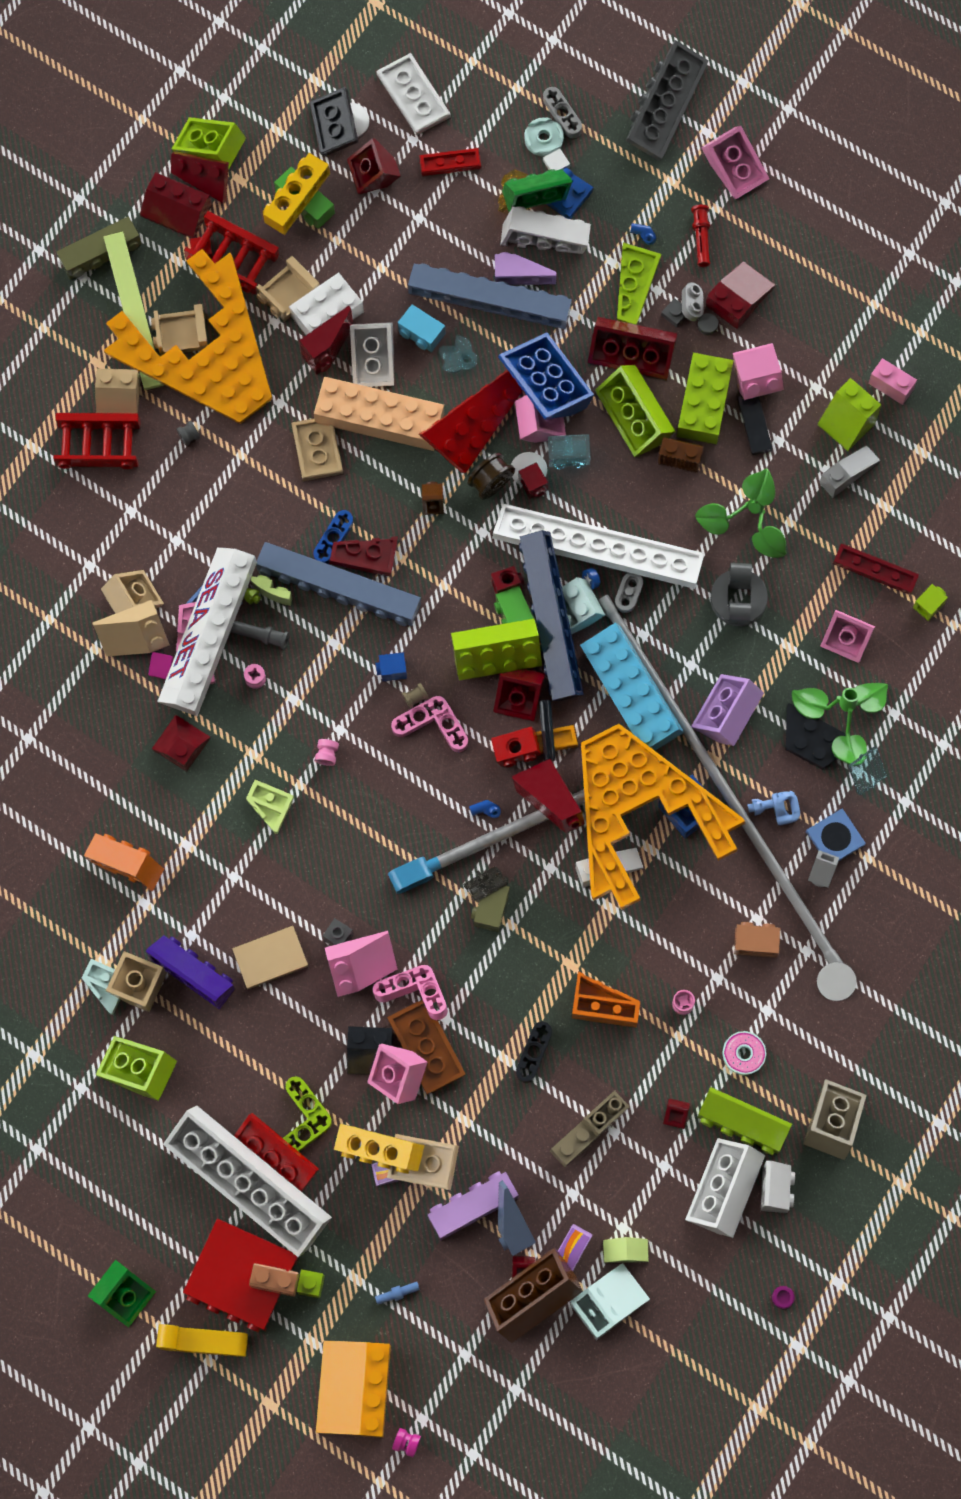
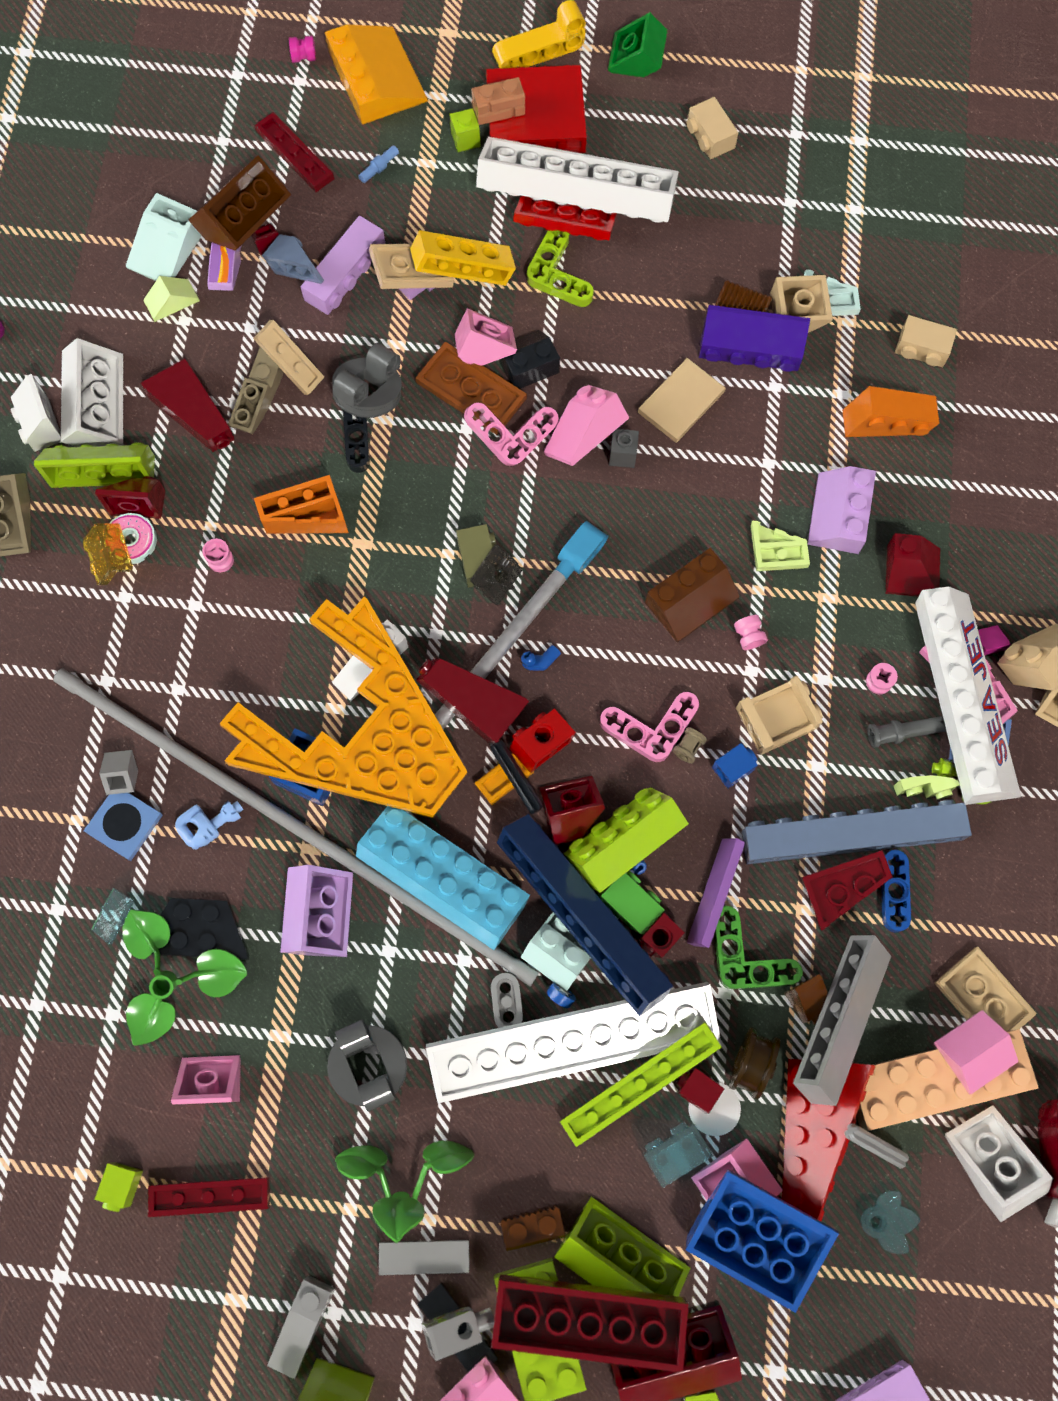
camera: 150 degrees right, 0 degrees up
(58, 907) = (925, 341): none -> tan brick
(106, 1182) = (712, 128): none -> tan brick
(136, 1067) = (747, 234): lime slope -> none
(180, 1007) = (742, 298): none -> reddish brown brick
(205, 809) = (842, 509): none -> lavender slope
(340, 687) = (780, 715): none -> tan panel
(351, 412) = (977, 1051): none -> bright pink slope
(352, 800) = (692, 595): none -> reddish brown slope
(421, 328) = (958, 1234): medium azure brick -> none
(421, 470) = (842, 1020): none -> light grey brick
(443, 394) = (876, 1145): none -> light grey axle
(453, 592) = (715, 892): none -> medium lavender tile
(462, 1340) = (294, 152): none -> dark red plate
(464, 544) = (738, 962): none -> bright green beam
(488, 1092) = (379, 369): none -> dark grey piece
(489, 296) = (900, 1334): sand blue brick -> none
(557, 1132) = (288, 357): none -> tan plate
(568, 500) = (640, 1084): none -> lime plate
(652, 1144) = (187, 402): none -> dark red slope
(673, 379) = (590, 1323): none -> dark red brick
(676, 1113) = (177, 448): dark red slope -> none
(726, 1076) = (135, 495): none -> dark red slope
(744, 466) = (424, 1257): none -> light grey tile
(756, 418) = (443, 1336): none -> light grey torso
(757, 940) = (164, 659): nougat brick -> none
(765, 1045) = (107, 552): none -> clear yellow bracket
(836, 981) = (56, 659): white sticker -> none

